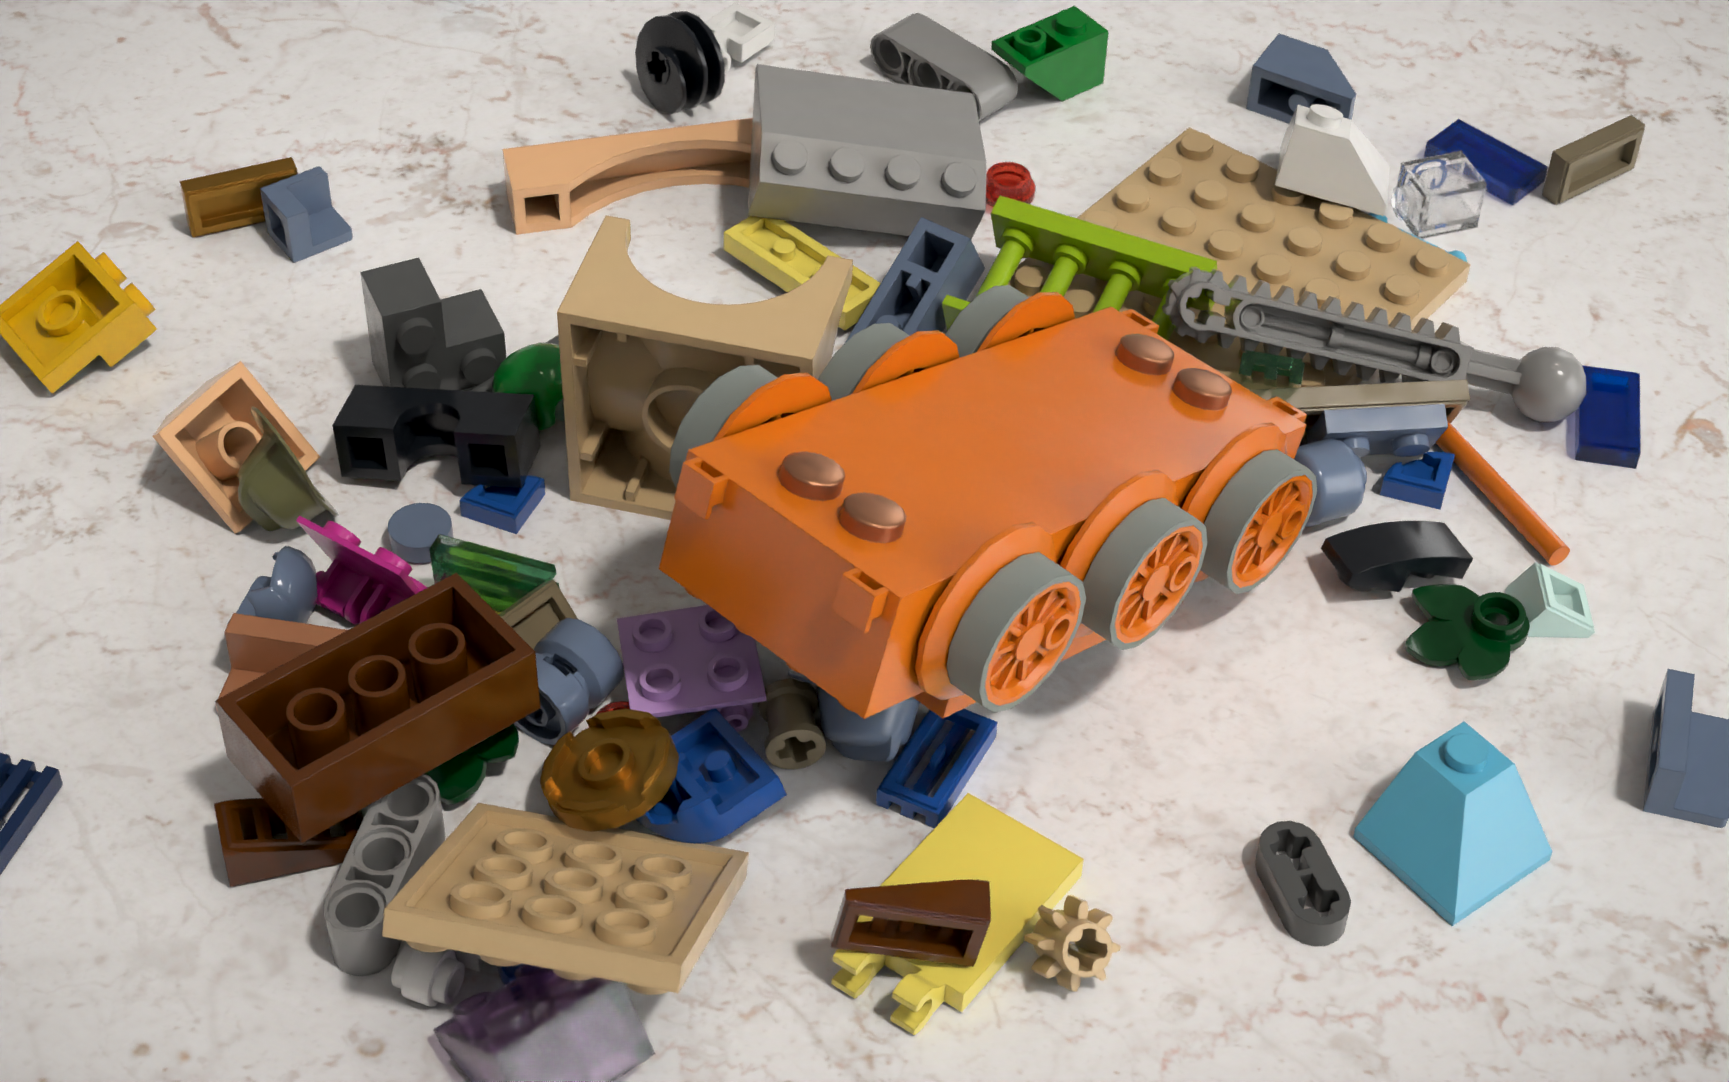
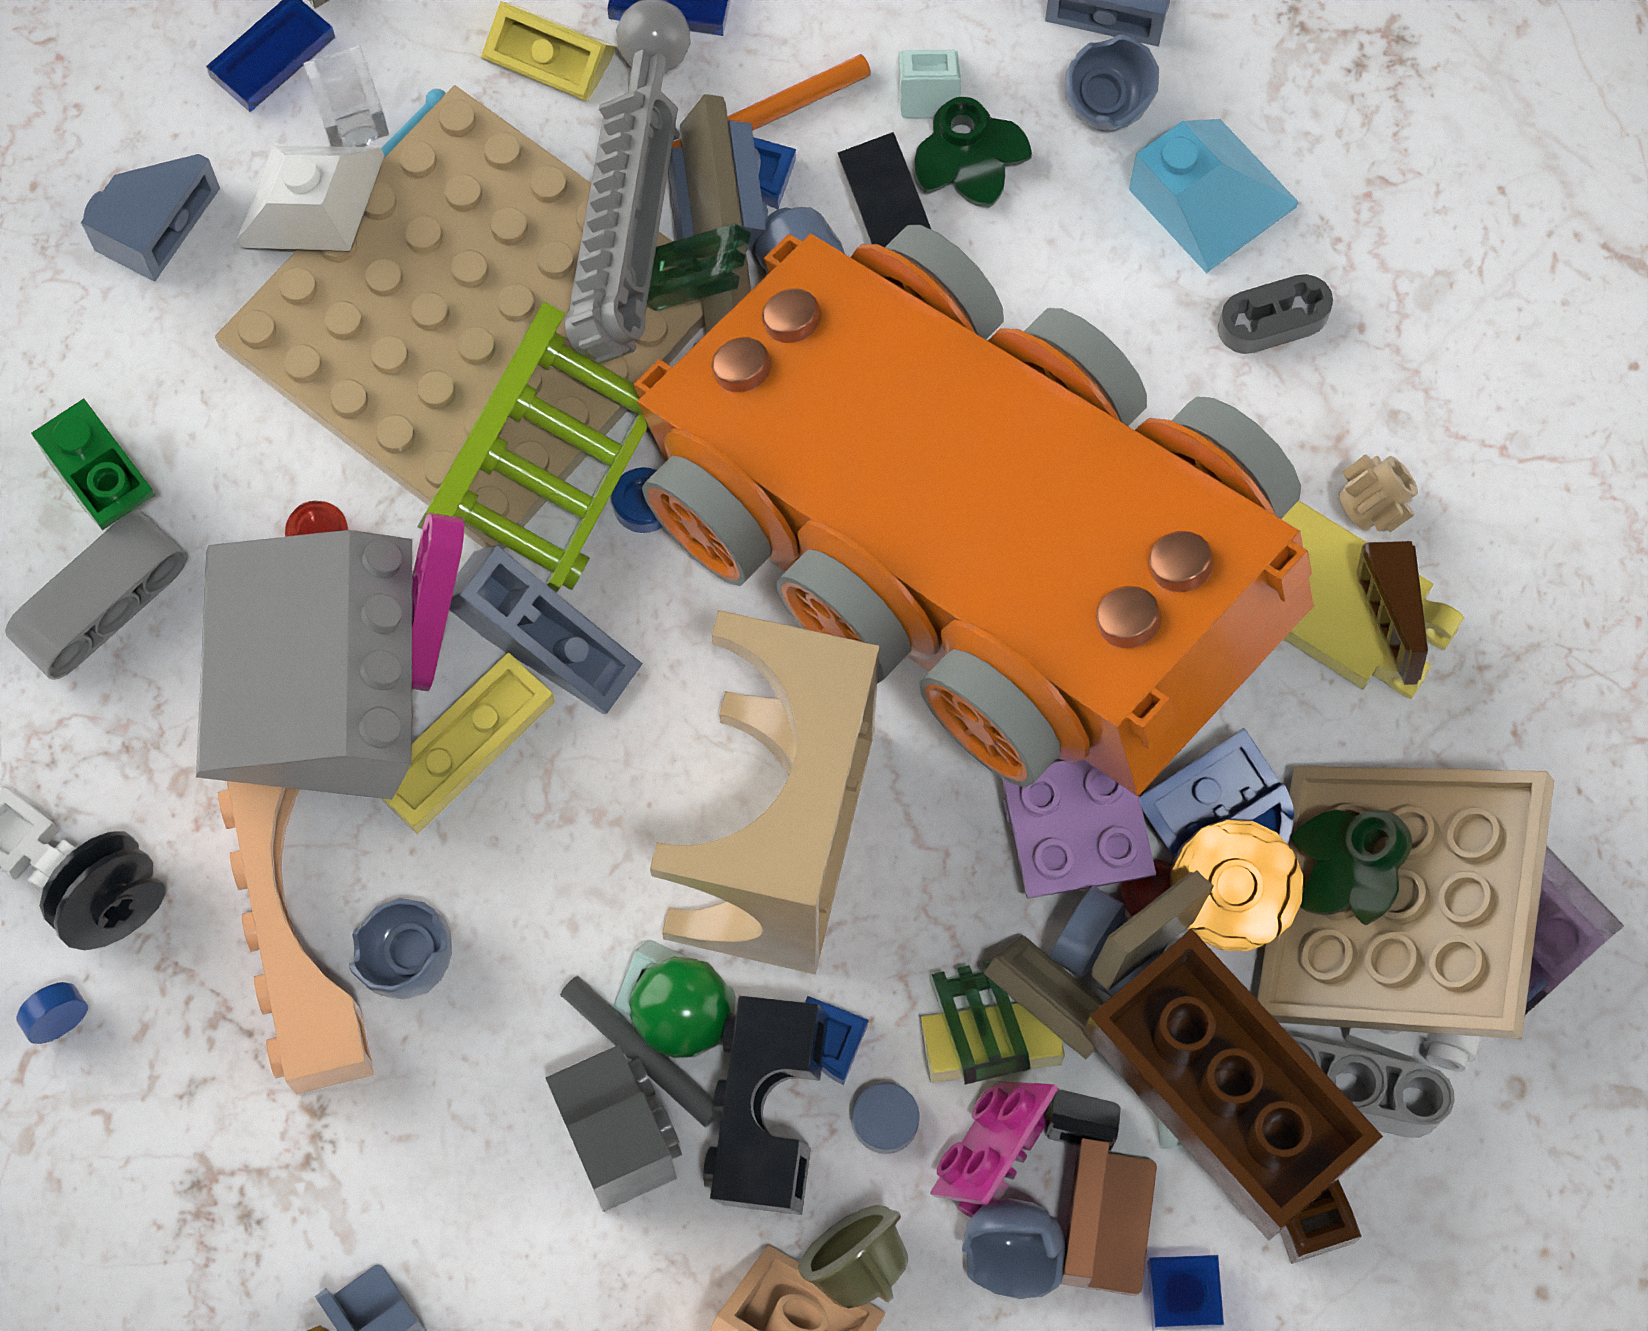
camera: 90 degrees left, 25 degrees up
(194, 732) = (1185, 1292): none -> clear blue plate
(562, 665) = (1151, 929): none -> dark tan tile
(585, 53) = (51, 1012): none -> blue tile
(589, 210) = (402, 949): none -> sand blue hair
(624, 853) = (1345, 865): none -> dark green plate
(953, 203) = (432, 592): none -> dark pink beam
(1531, 321) = (547, 50): none -> light yellow slope
(1567, 737) = (1112, 82): none -> sand blue hair

